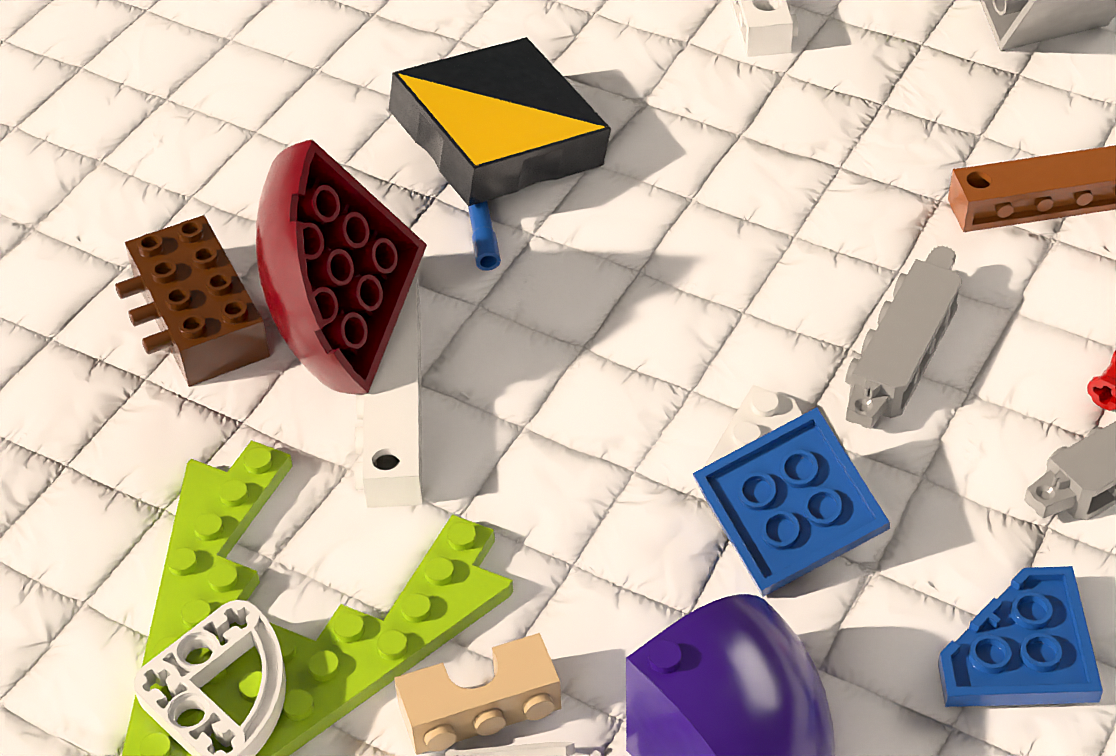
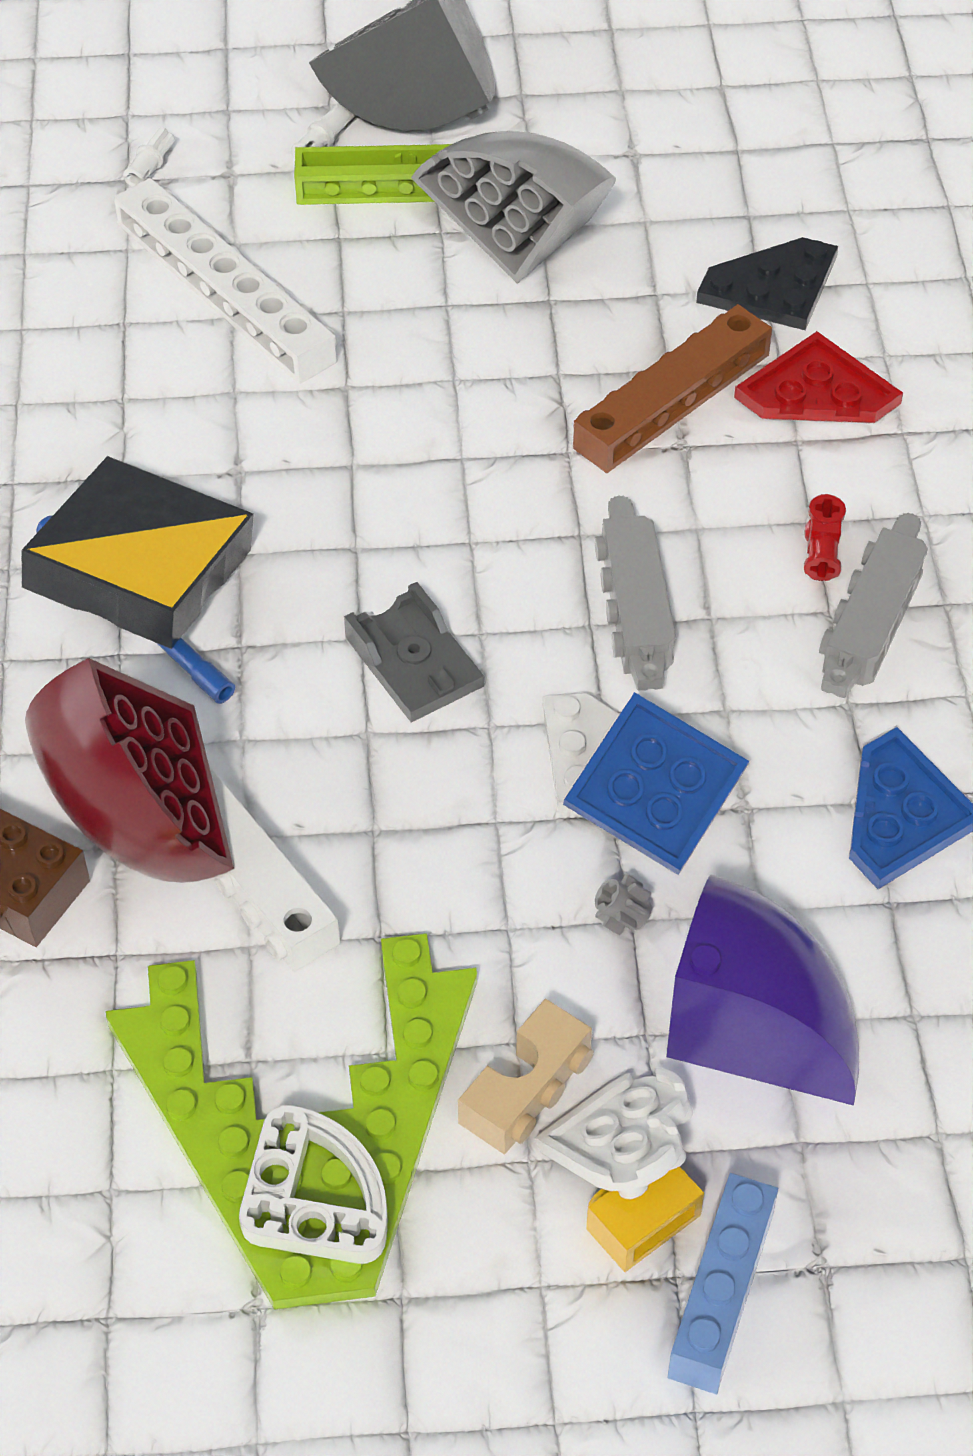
camera: 35 degrees left, 5 degrees up
(669, 302) = (418, 680): none -> dark grey piece
(680, 590) = (623, 904): none -> light grey gear

